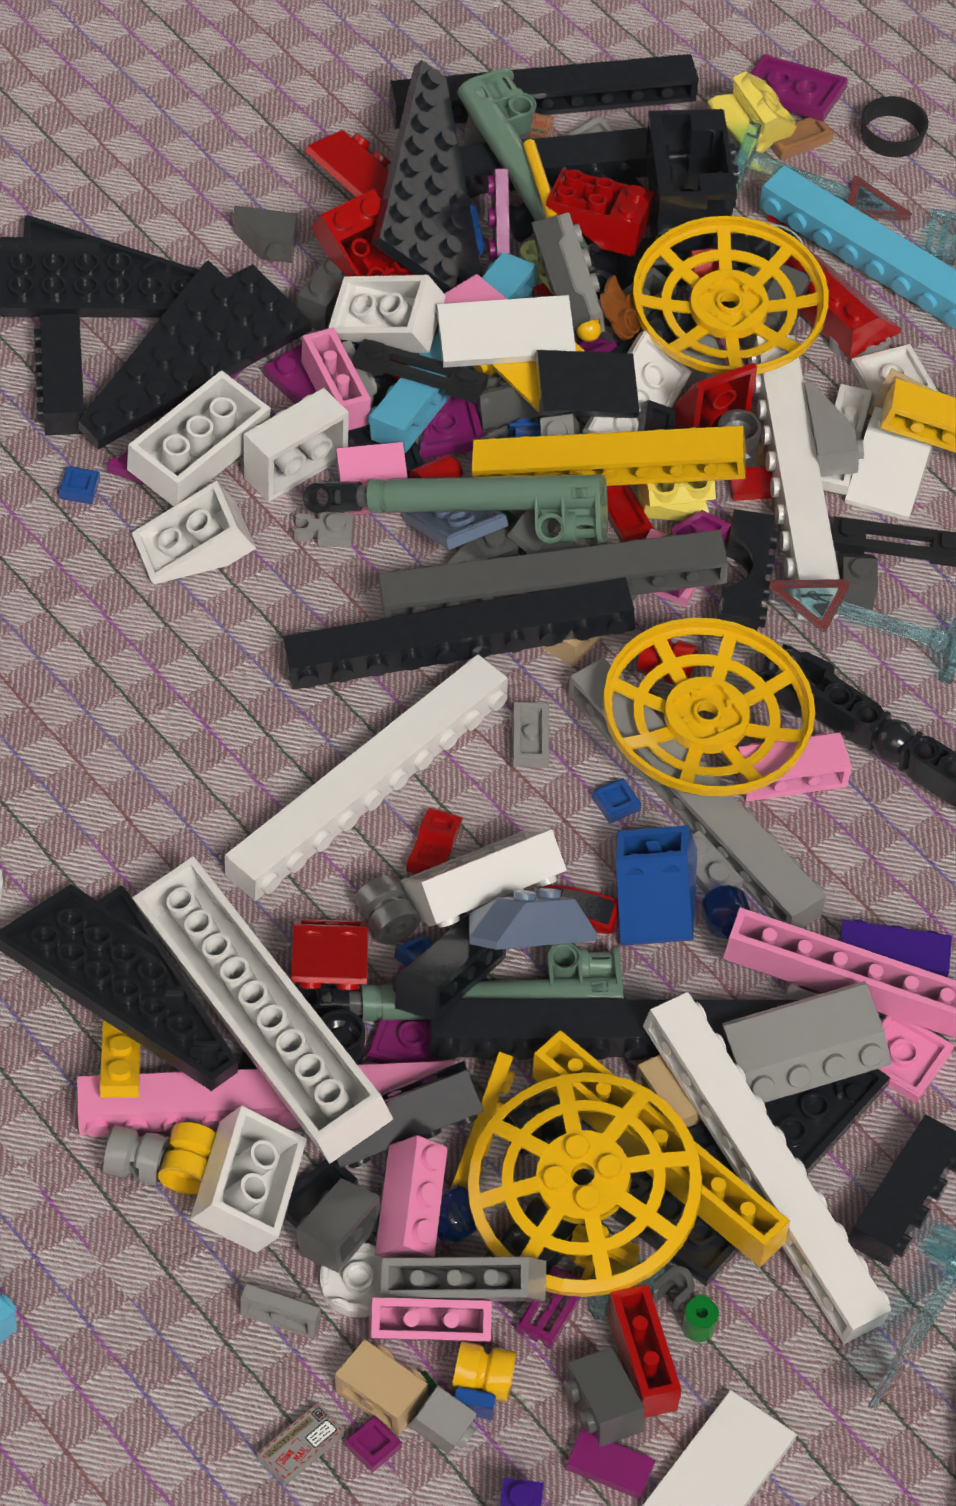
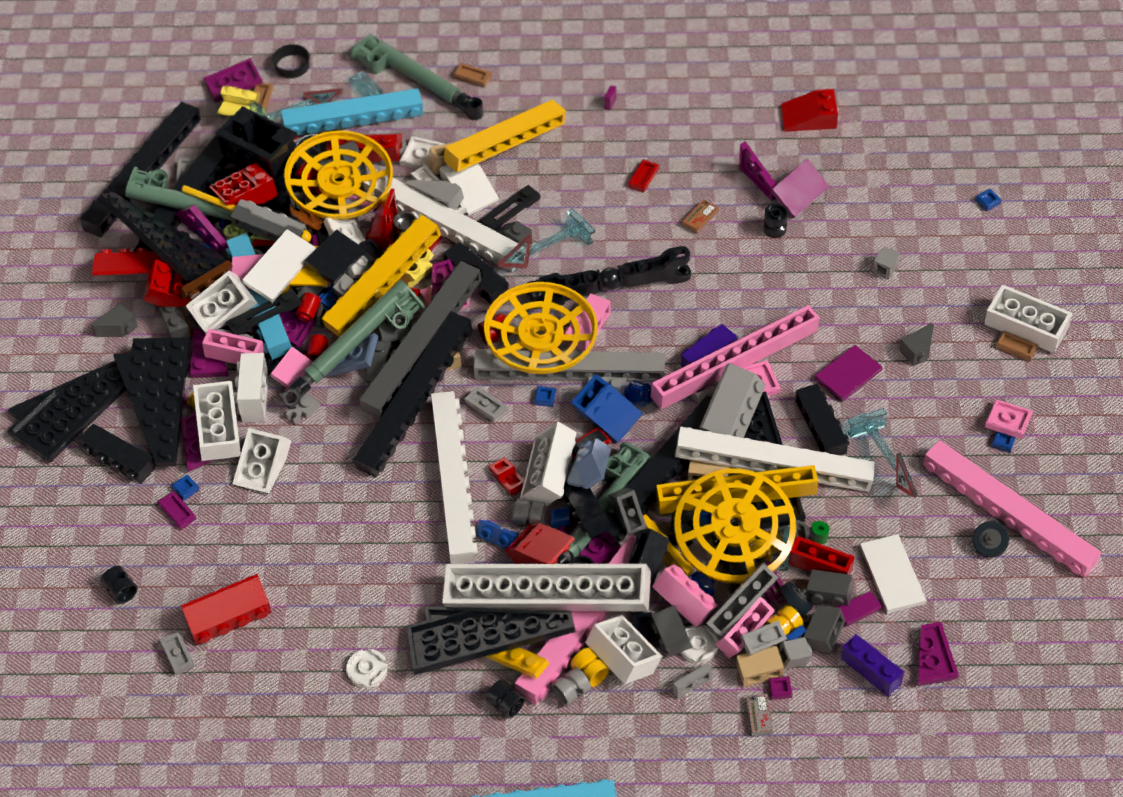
camera: 45 degrees left, 0 degrees up
(35, 500) = (177, 510): none -> magenta tile
(47, 1084) = (504, 698): none -> black wheel
(319, 881) = (493, 533): none -> blue hinge
(385, 263) = (200, 284): none -> reddish brown wing
(419, 1353) = (763, 638): none -> light grey plate
(483, 1023) = (627, 510): none -> dark grey slope
(484, 416) = (308, 308): none -> red brick
(523, 1435) = (824, 628): none -> dark grey brick
(542, 1358) = (796, 598): none -> black wheel

